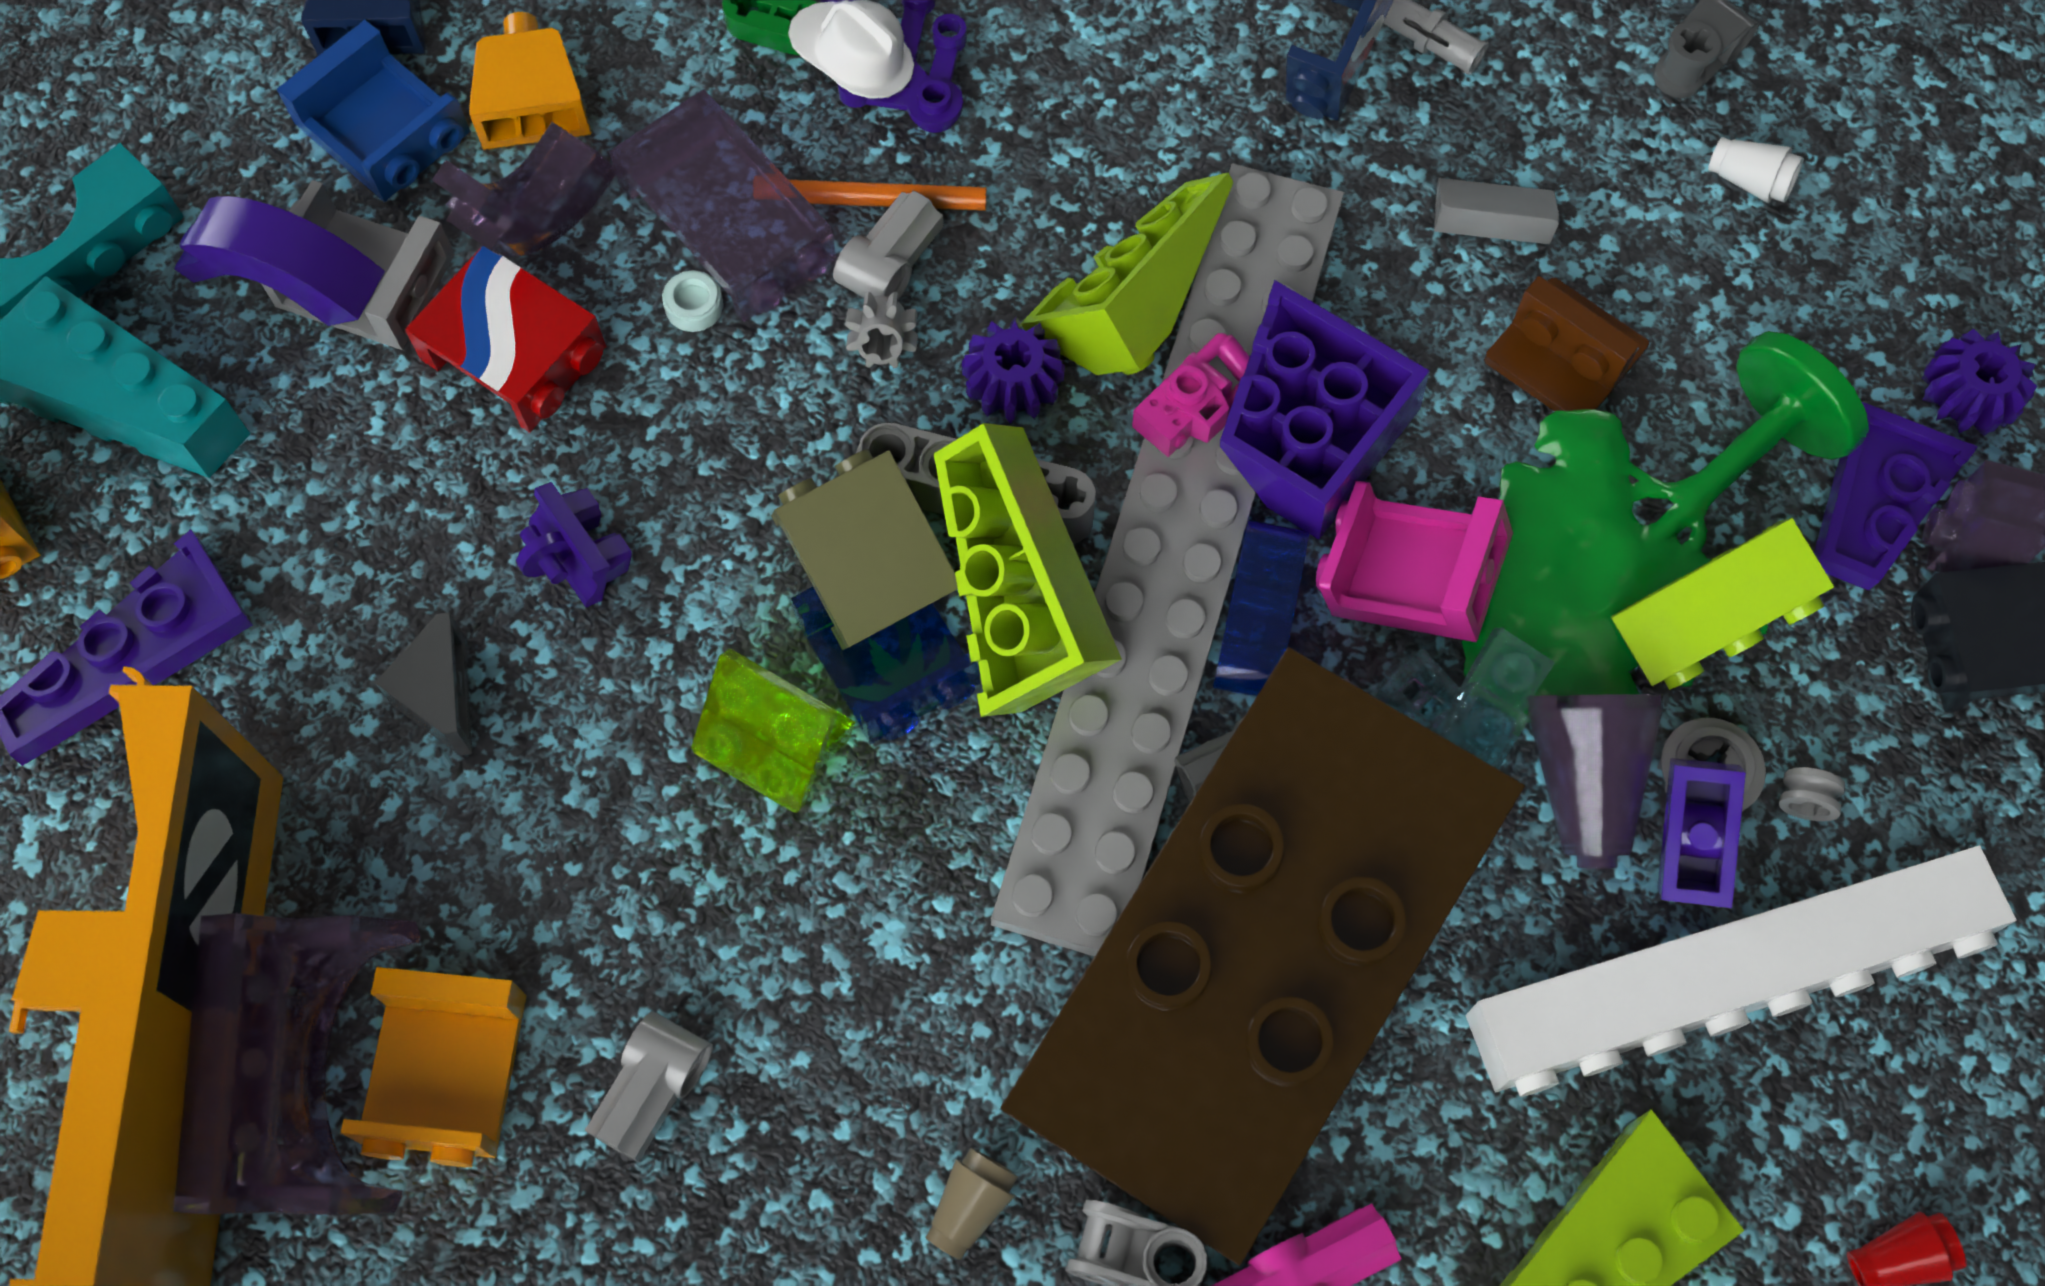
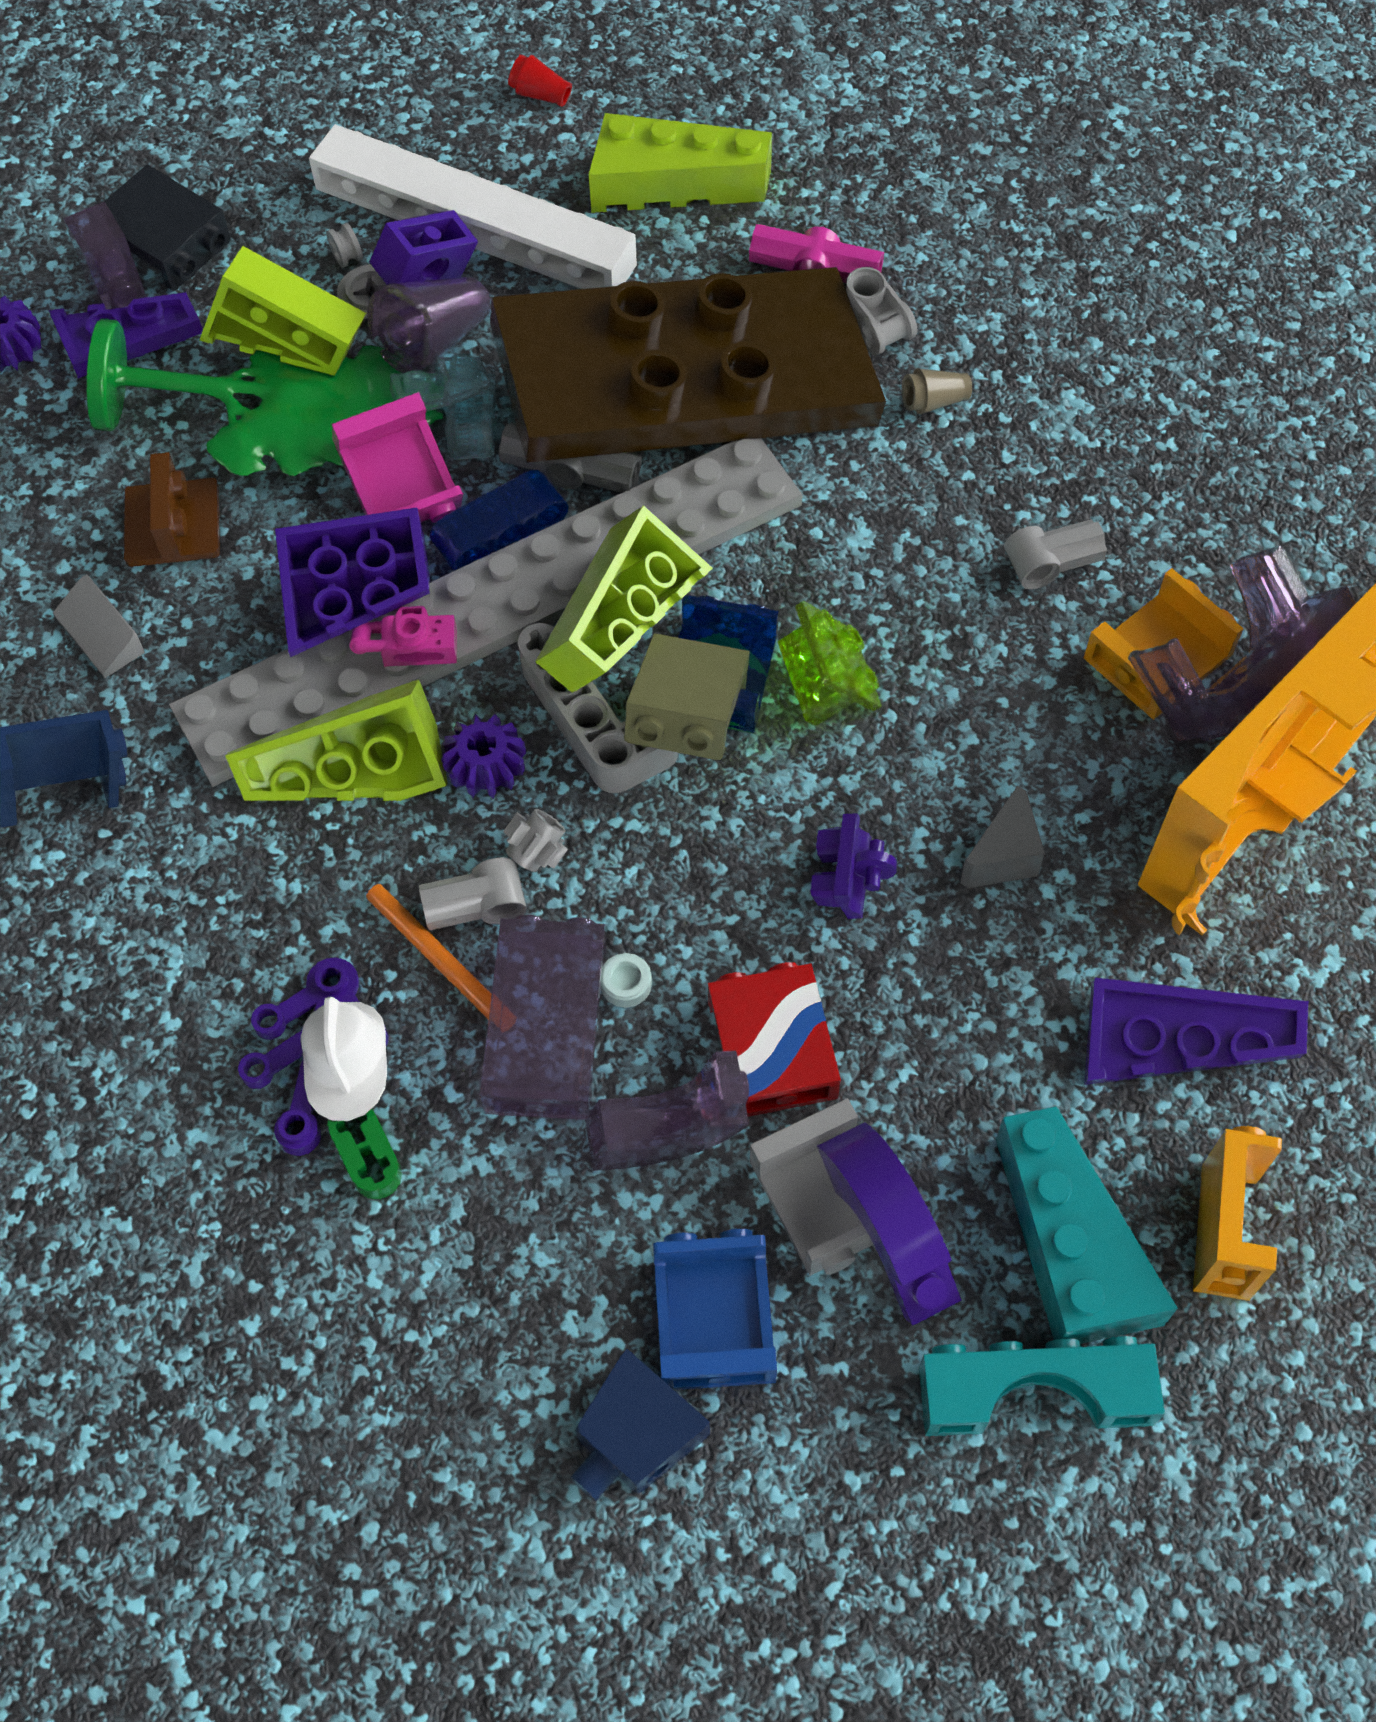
camera: 135 degrees left, 5 degrees down
(523, 85) = (587, 1236): light orange torso -> none

